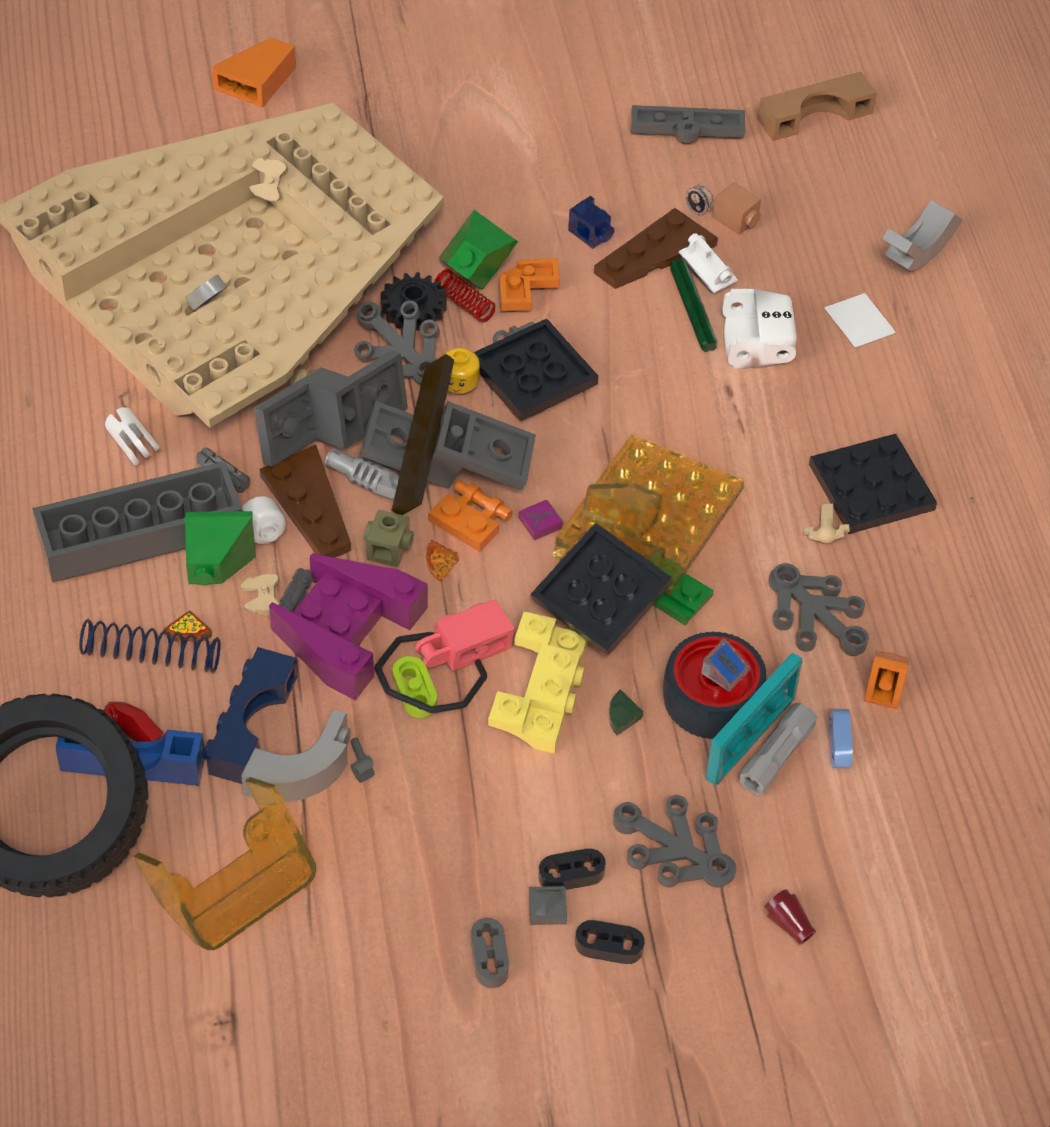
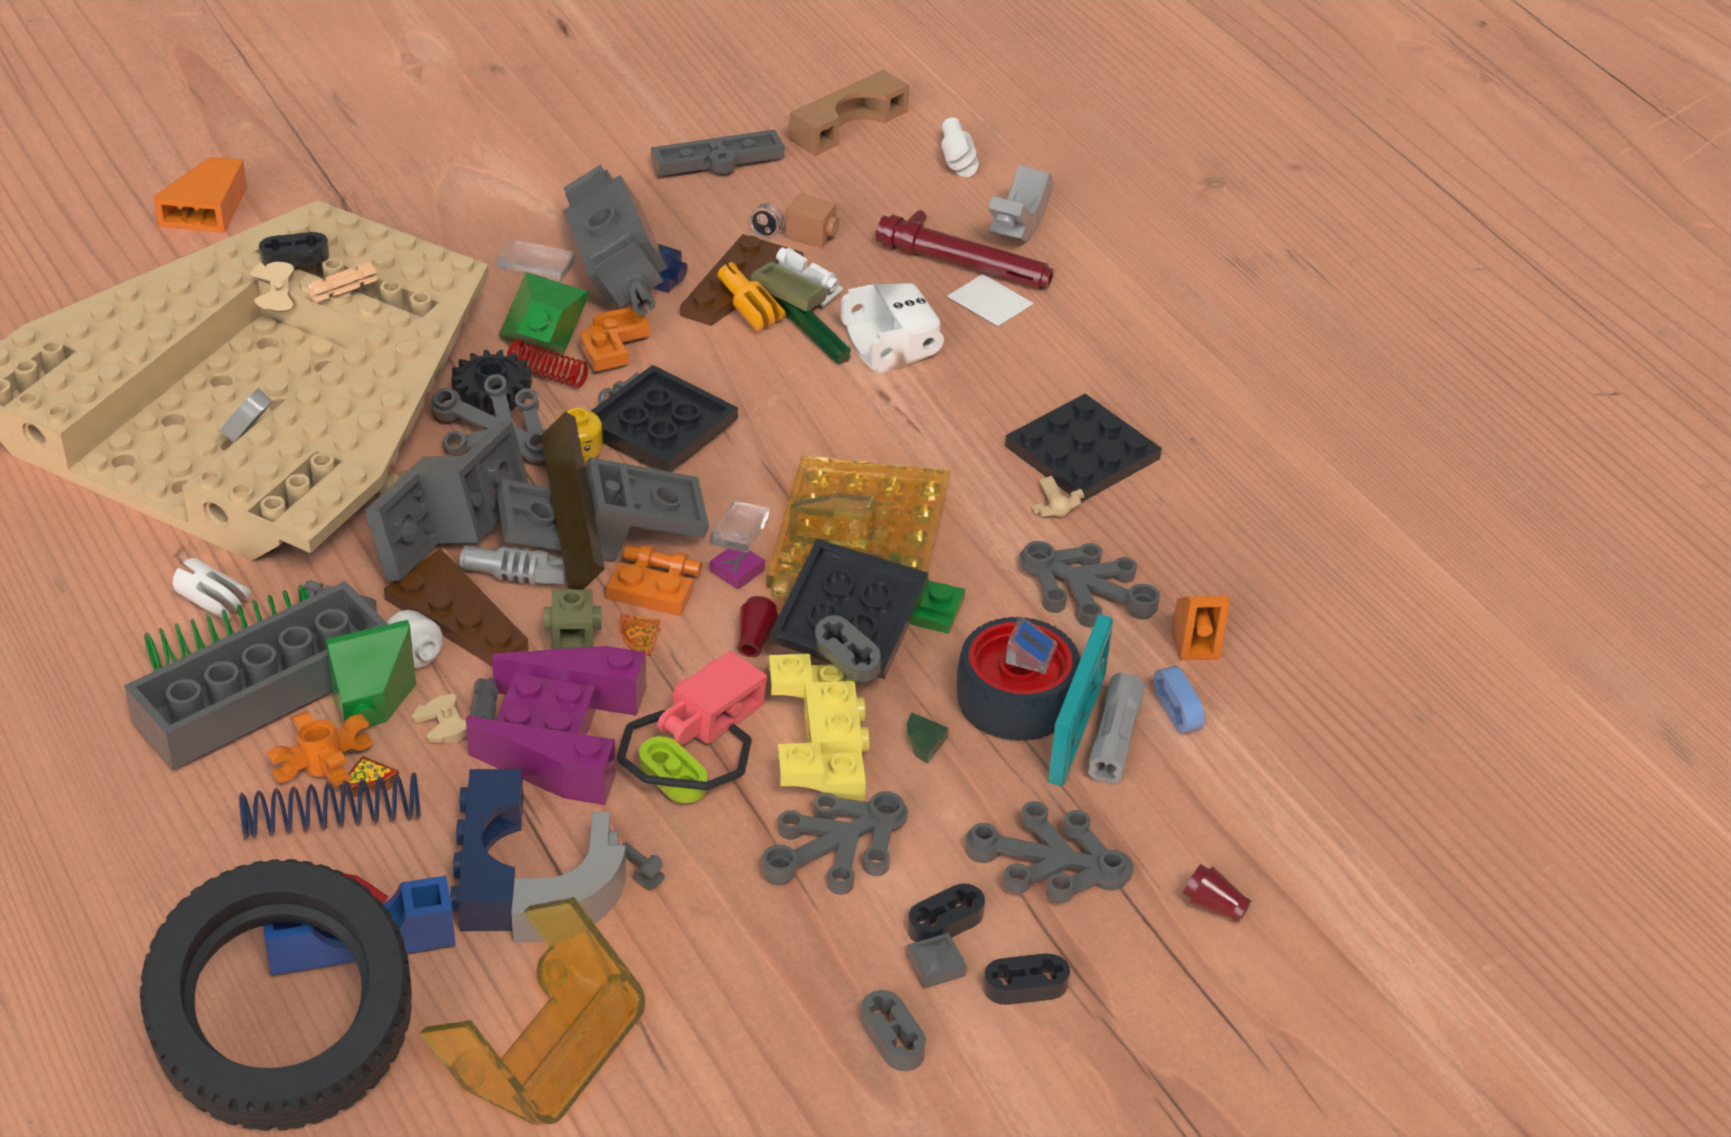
camera: 20 degrees left, 10 degrees down
(88, 484) = (151, 648): none -> green piece
(160, 595) = (320, 748): none -> orange pin
(293, 150) = (295, 249): none -> black beam
(319, 190) = (342, 282): none -> light nougat axle
(496, 192) = (536, 259): none -> clear tile
(518, 779) = (882, 814): none -> dark grey plant
(529, 577) = (755, 624): none -> dark red cone
(555, 486) = (739, 526): none -> clear tile
(559, 193) = (614, 239): none -> dark grey brick
(589, 622) = (842, 654): none -> dark grey beam
(652, 274) = (751, 298): none -> light orange arm
(688, 270) = (789, 286): none -> olive tile
(818, 246) = (915, 238): none -> dark red cylinder
(896, 163) = (959, 148): none -> white arm

